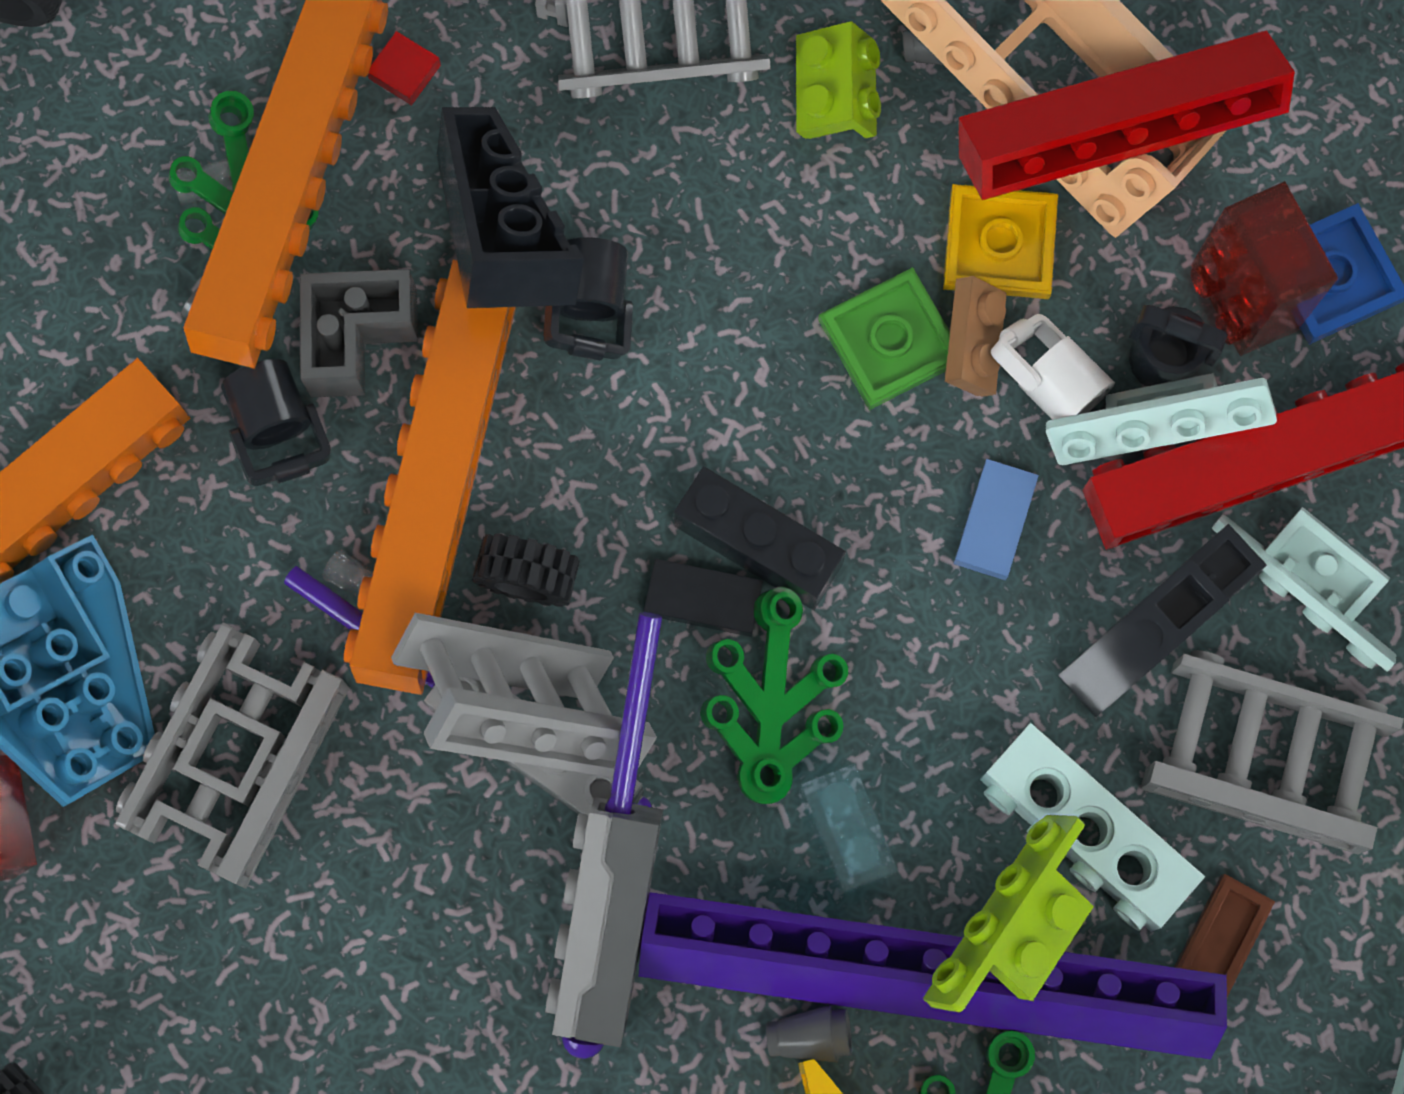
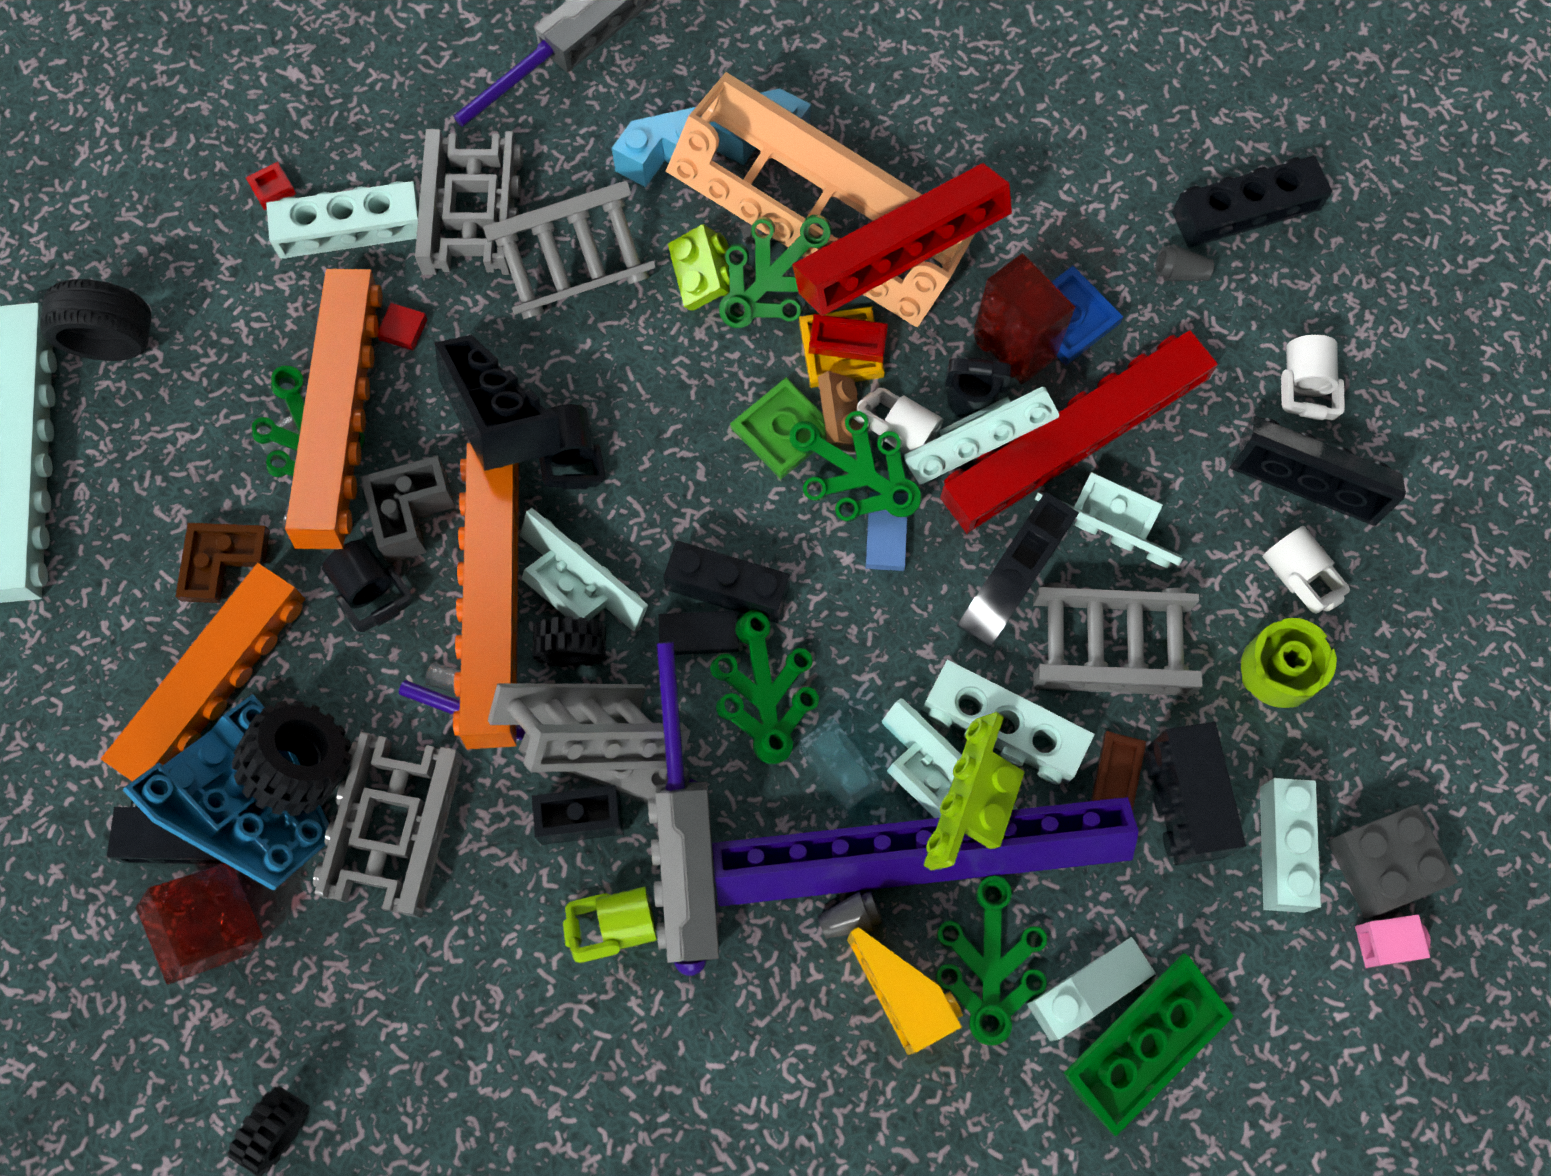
camera: 15 degrees left, 5 degrees down
(76, 324) = (208, 552): none -> reddish brown plate
(93, 658) = (278, 781): none -> black tyre
(481, 807) = (577, 815): none -> black brick
(508, 962) = (623, 921): none -> lime piece
(552, 482) = (573, 578): none -> light aqua bracket
(923, 119) = (768, 275): none -> green plant
(968, 856) = (929, 761): none -> light aqua bracket
(981, 430) = (861, 471): none -> green plant
(1013, 234) = (848, 338): none -> red tile
(1319, 994) = (1194, 794): none -> black brick

